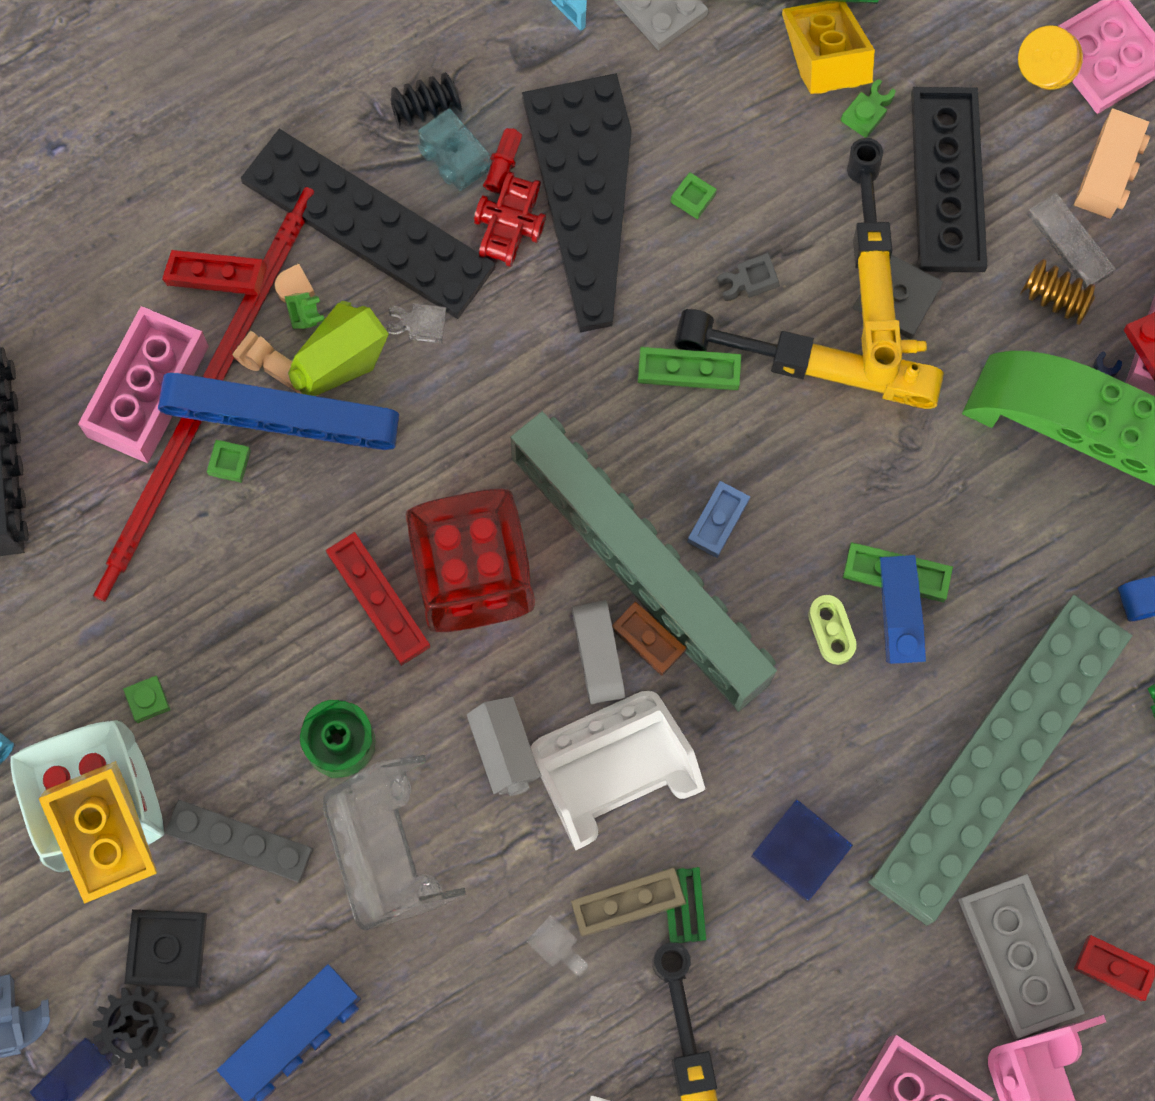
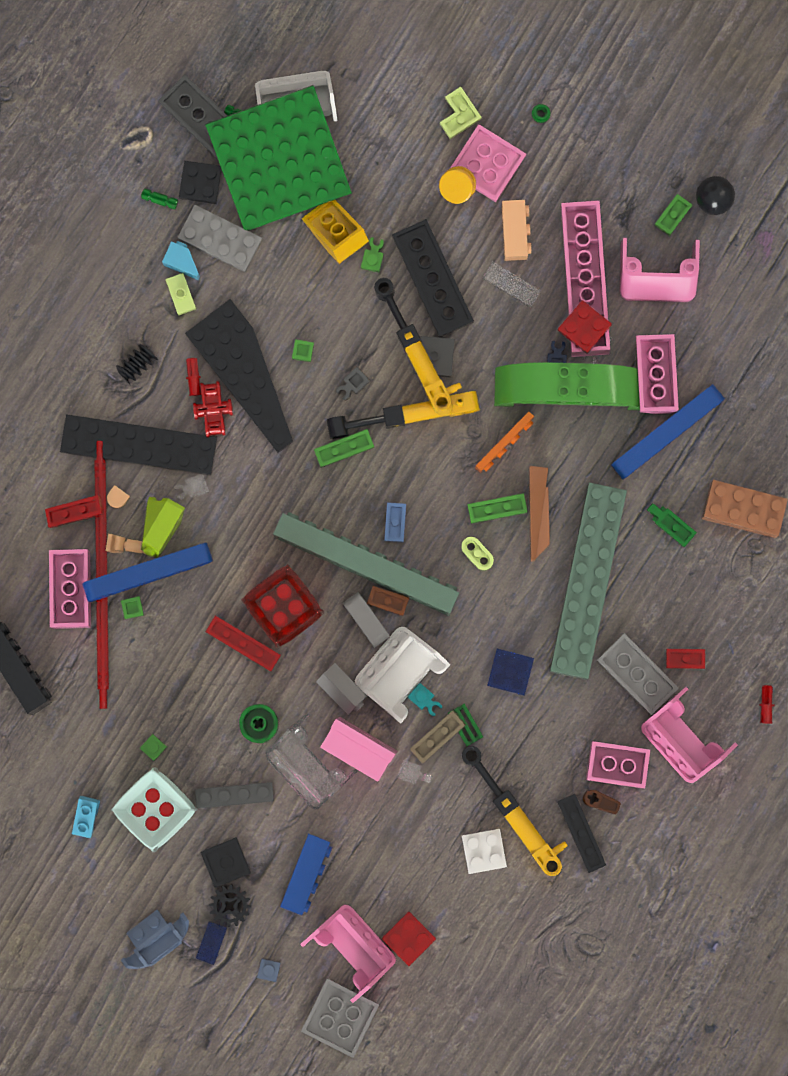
camera: 20 degrees left, 10 degrees up
(98, 831) = (174, 824): yellow slope -> none
(303, 310) = (131, 511): bright green plate -> none
(454, 150) = (157, 376): clear light blue brick -> none
(482, 855) = (358, 749): none -> bright pink container
(544, 36) = (180, 294): none -> yellowish green plate
(632, 825) = (422, 697): none -> teal plate
(902, 610) = (507, 528): blue slope -> none
(944, 479) = (500, 448): none -> orange plate
(965, 606) = (538, 511): none -> nougat wedge
(1060, 291) = (516, 317): pearl gold piece -> none

